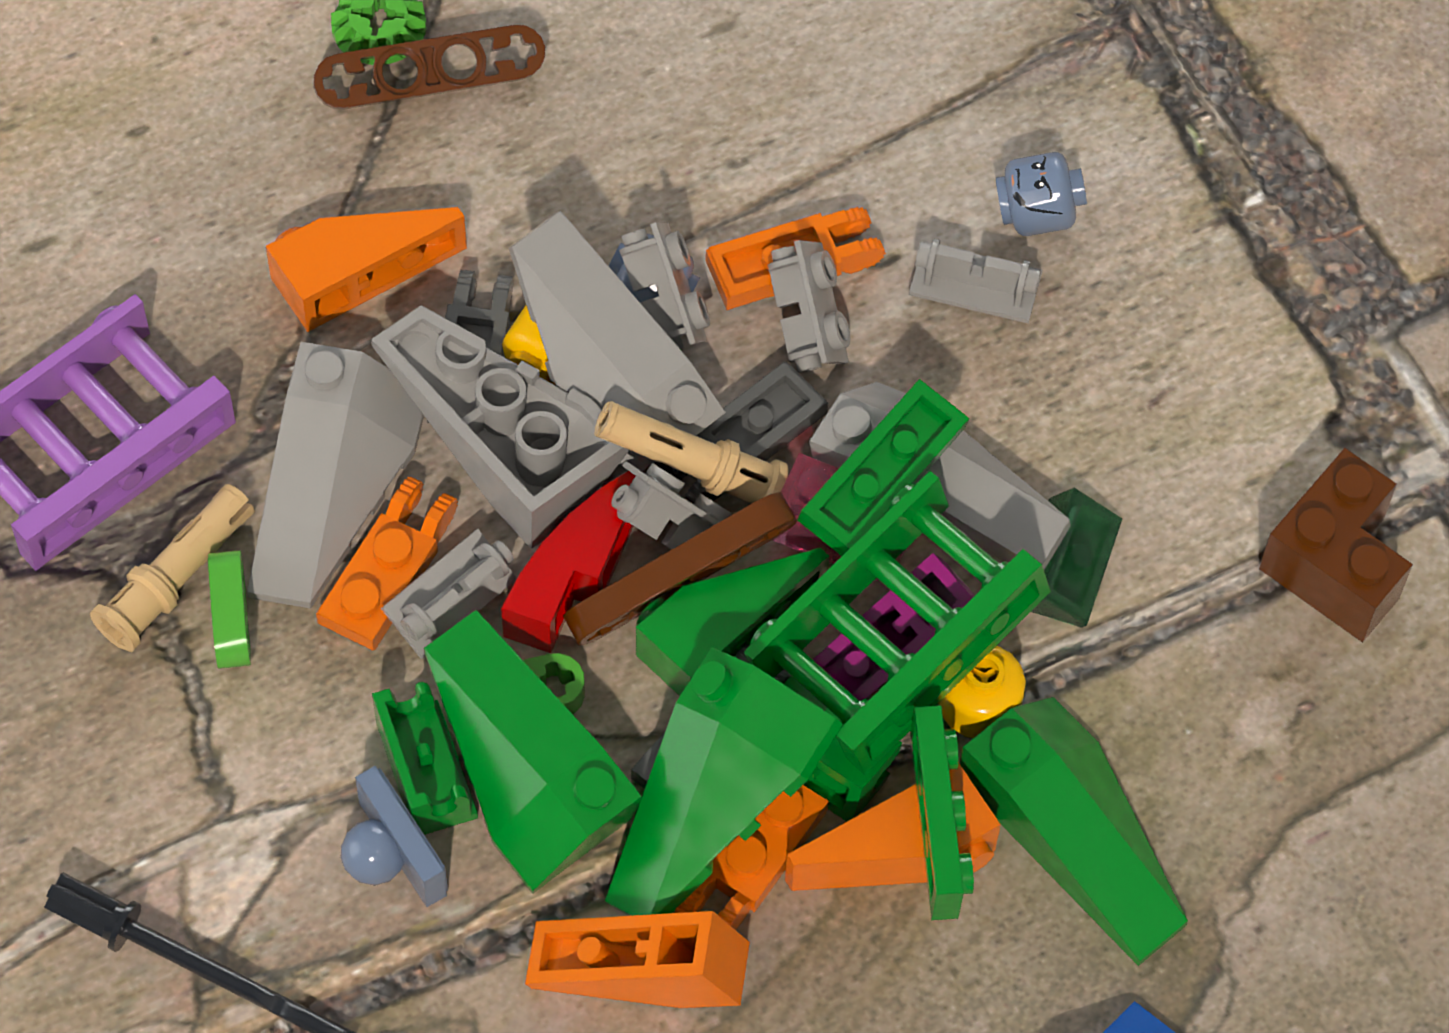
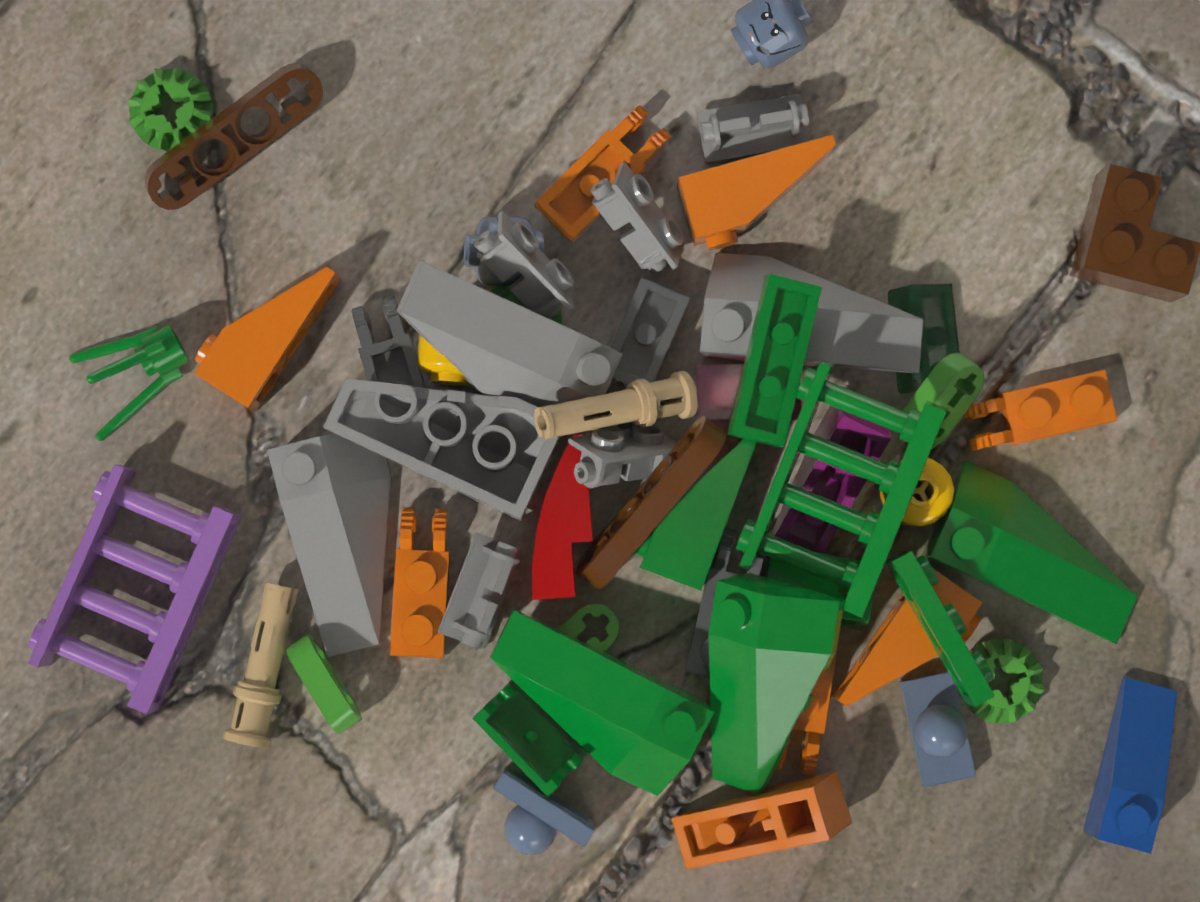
camera: 20 degrees left, 25 degrees up
(237, 226) = (156, 351): none -> green plant
(888, 960) = (937, 729): none -> sand blue tile
(936, 329) = (739, 193): none -> orange slope
(1009, 961) = (1024, 692): none -> bright green gear
(1057, 620) = (953, 385): none -> bright green beam
(1163, 683) = (1047, 410): none -> orange hinge

